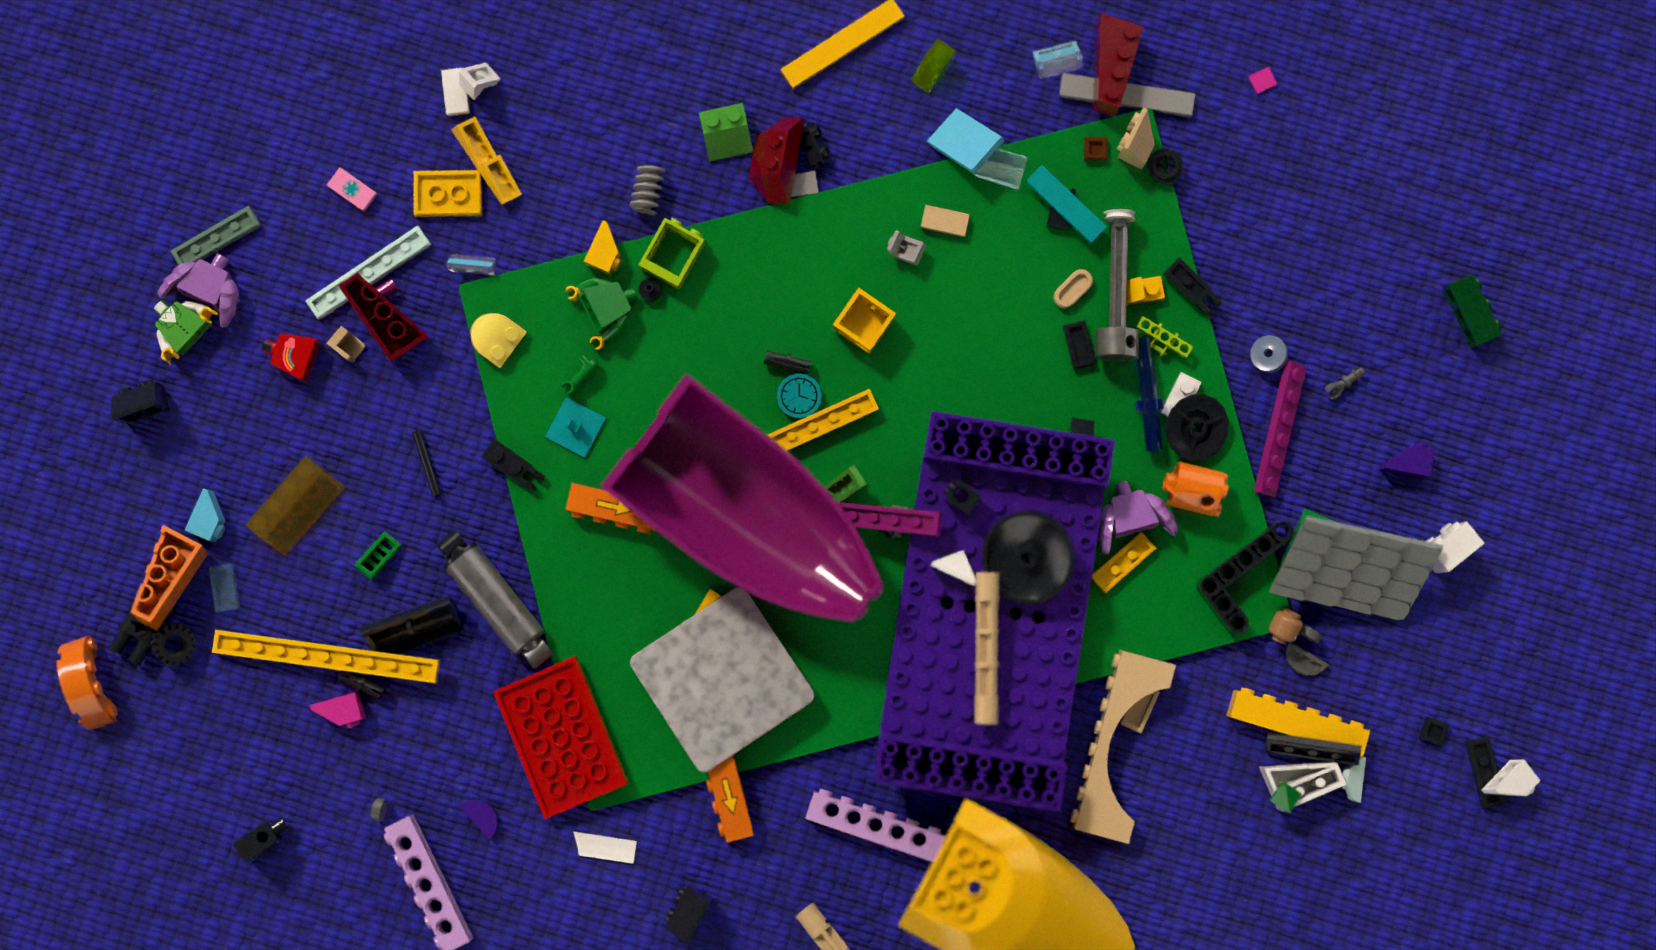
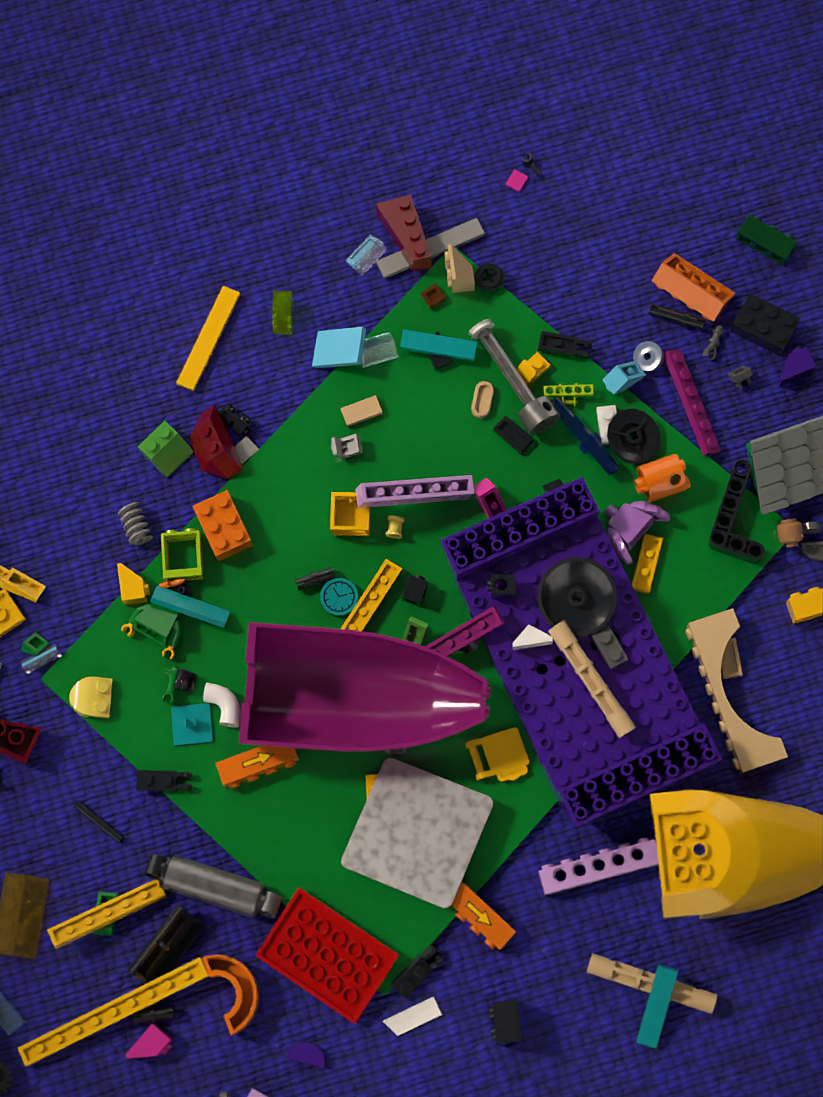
camera: 25 degrees left, 10 degrees down
(376, 558) = (106, 913): none -> yellow tile
(464, 711) = (245, 986): none -> orange brick
(474, 246) = (34, 644): none -> green slope
(595, 381) = (185, 681): none -> black tile
(622, 428) = (226, 701): none -> white cylinder
(635, 808) = (416, 971): none -> black hinge
(643, 274) = (172, 583): none -> orange helmet
(646, 310) = (190, 606): none -> teal tile
(731, 249) = (222, 525): none -> orange brick
(856, 657) = (503, 753): none -> yellow piece
(877, 439) = (415, 590): none -> black brick
(899, 362) = (395, 527): none -> light yellow bush
(941, 341) = (414, 491): none -> lavender brick
(1010, 397) = (489, 498): none -> dark pink slope
(1026, 626) = (609, 647): none -> dark grey plate
(1229, 359) = (623, 377): none -> medium azure slope
(1288, 72) = (528, 163): none -> black hand
(1326, 331) = (676, 316): none -> black pin
(1349, 433) = (739, 375): none -> dark grey tile
(1364, 311) = (693, 287): none -> orange slope
(1409, 398) = (765, 324): none -> black brick

